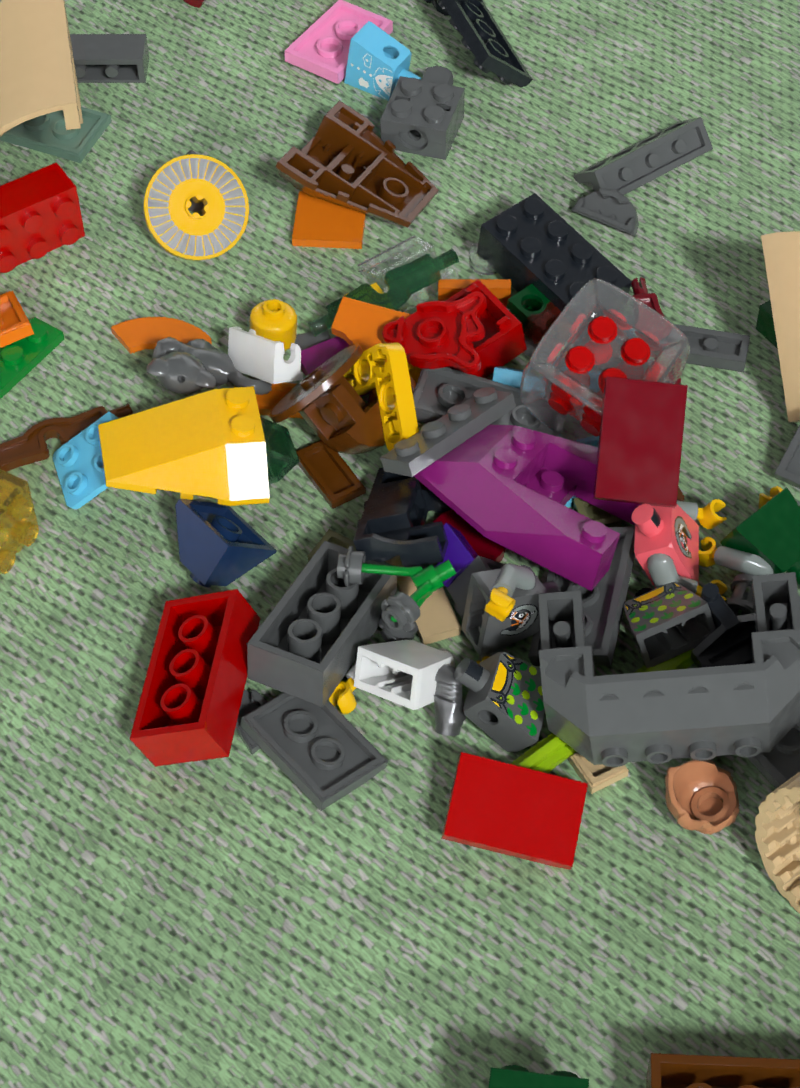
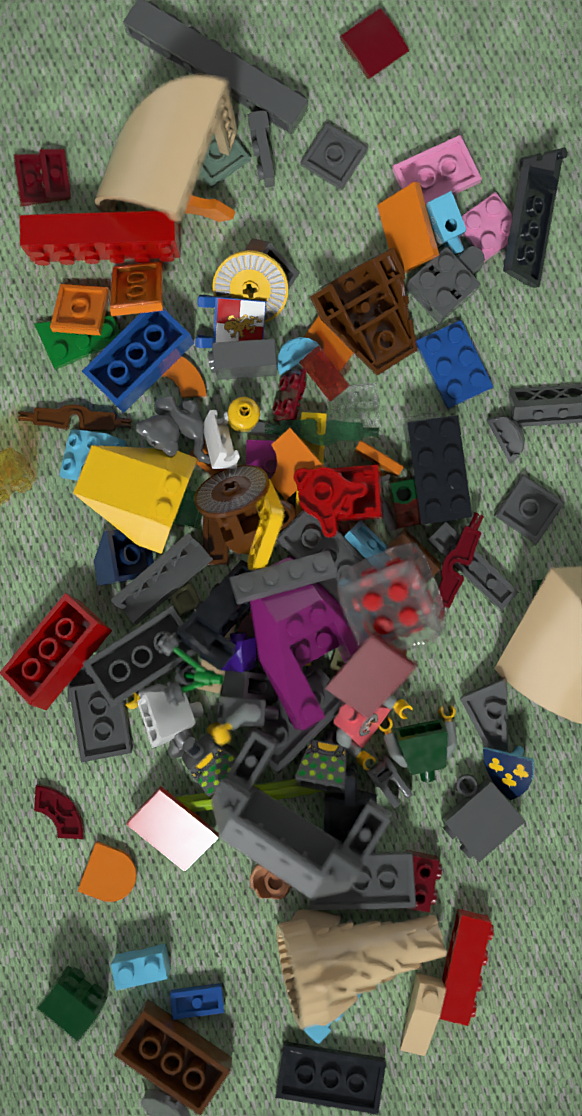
camera: 30 degrees right, 35 degrees up
(54, 263) = (136, 288): none -> orange tile
(95, 168) = (209, 208): none -> orange tile
(98, 331) = (138, 357): none -> blue brick
(119, 98) = (259, 132): none -> dark grey plate
(201, 252) = (233, 320): none -> flag
(209, 77) = (334, 156): none -> dark grey tile
(237, 269) = (243, 359): none -> dark grey brick
(291, 538) = (162, 578): none -> dark grey fence
(295, 248) = (293, 352): none -> medium azure tile
(317, 278) = (291, 387): none -> dark red hinge
(340, 75) = (408, 227): none -> orange tile
(345, 243) = (324, 373): none -> clear red tile
(352, 896) = (60, 811): none -> dark red tile
(436, 49) = (488, 226): none -> bright pink plate
(463, 936) = (108, 874): none -> orange tile
(489, 179) = (454, 364): none -> blue plate
(602, 1021) = (140, 967): none -> medium azure brick
(692, 264) = (529, 509): none -> dark grey tile
(725, 1025) = (197, 1001): none -> blue plate

